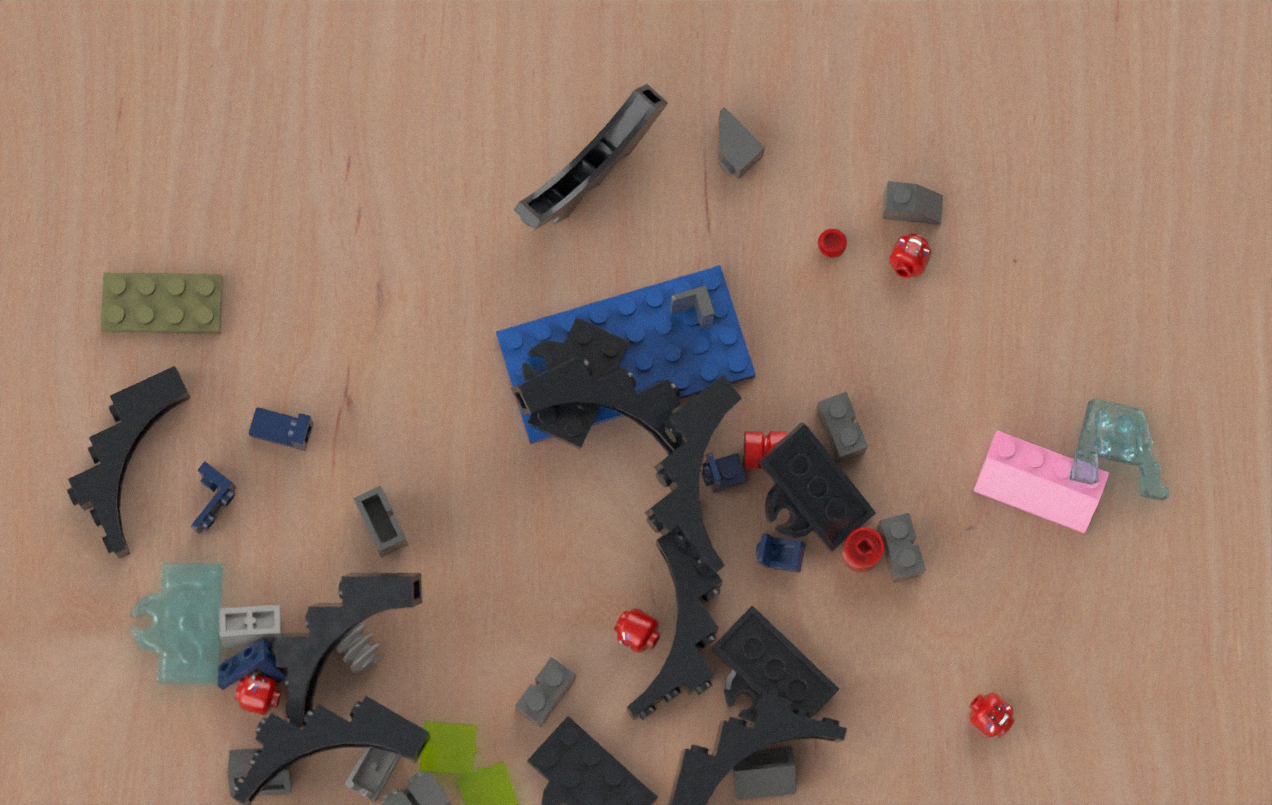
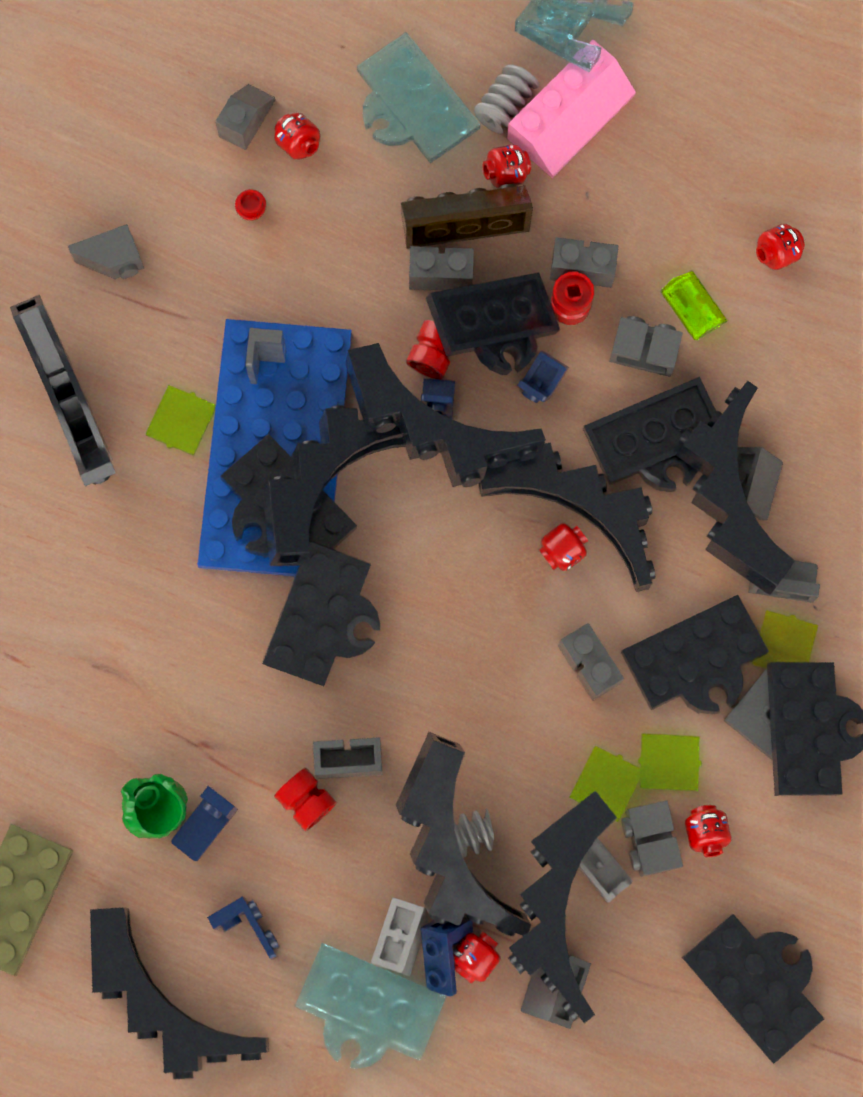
camera: 65 degrees left, 0 degrees up
(278, 380) = (153, 806): none -> green hair
(333, 501) = (305, 799): none -> red wheel
(492, 450) = (322, 616): none -> black plate
(617, 266) = (181, 420): none -> clear neon green piece
(848, 631) = (646, 346): none -> dark grey piece
(899, 428) = (466, 215): none -> dark brown slope
(907, 660) = (693, 305): none -> clear neon green slope
(961, 446) = (506, 165): none -> red head
(988, 342) = (413, 101): none -> clear light blue plate
(1025, 419) = (503, 96): none -> light grey piece

